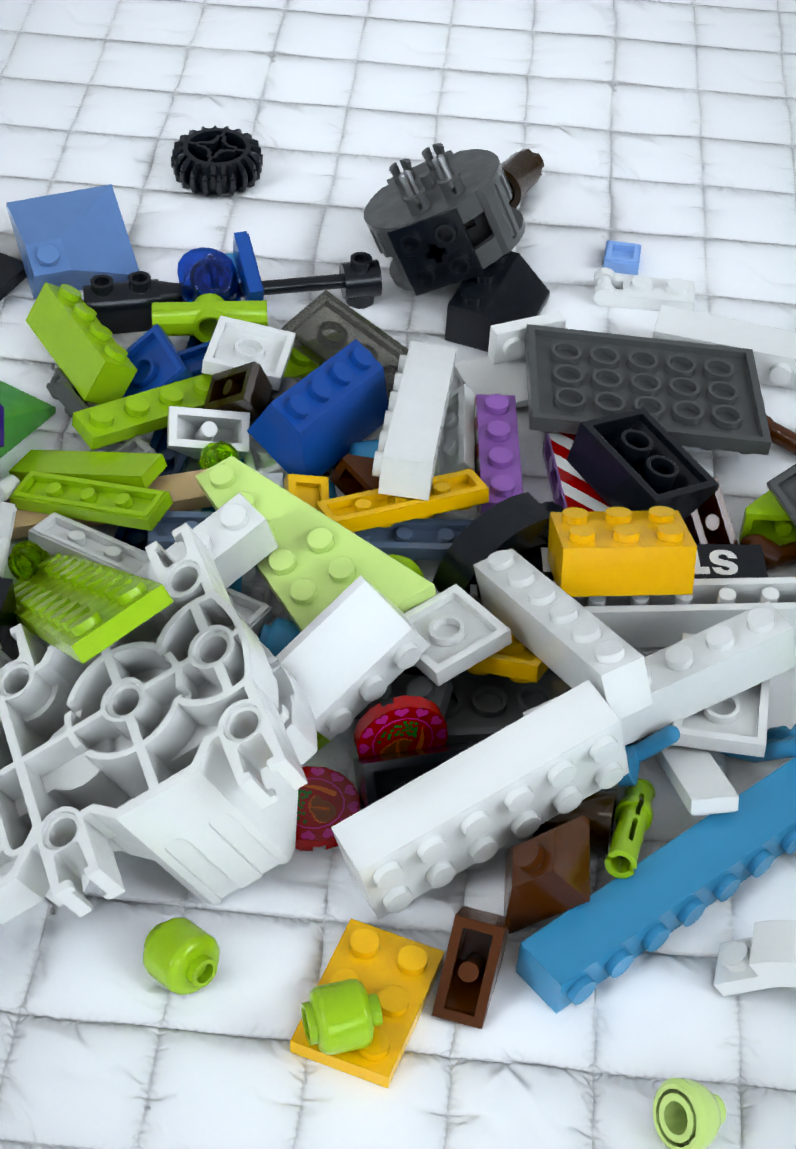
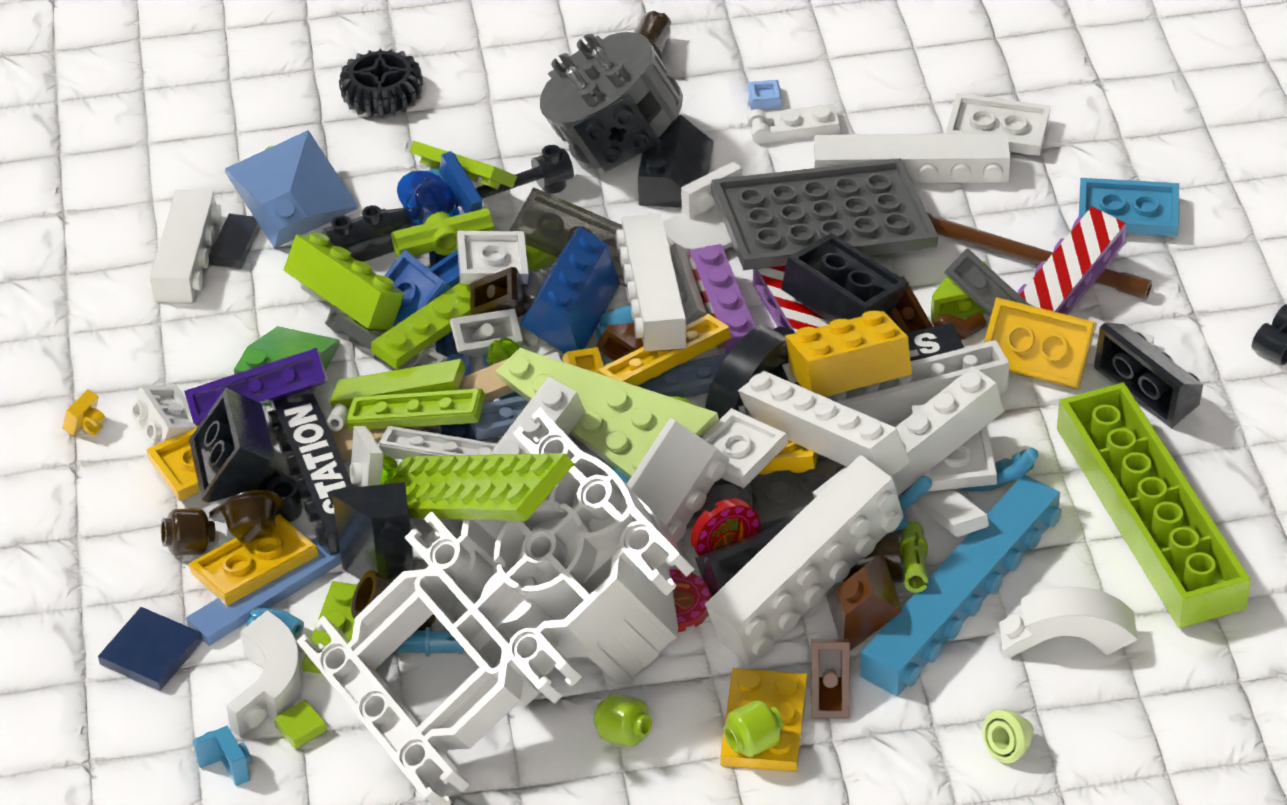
camera: 10 degrees left, 0 degrees up
(267, 258) = (489, 174): none -> lime plate

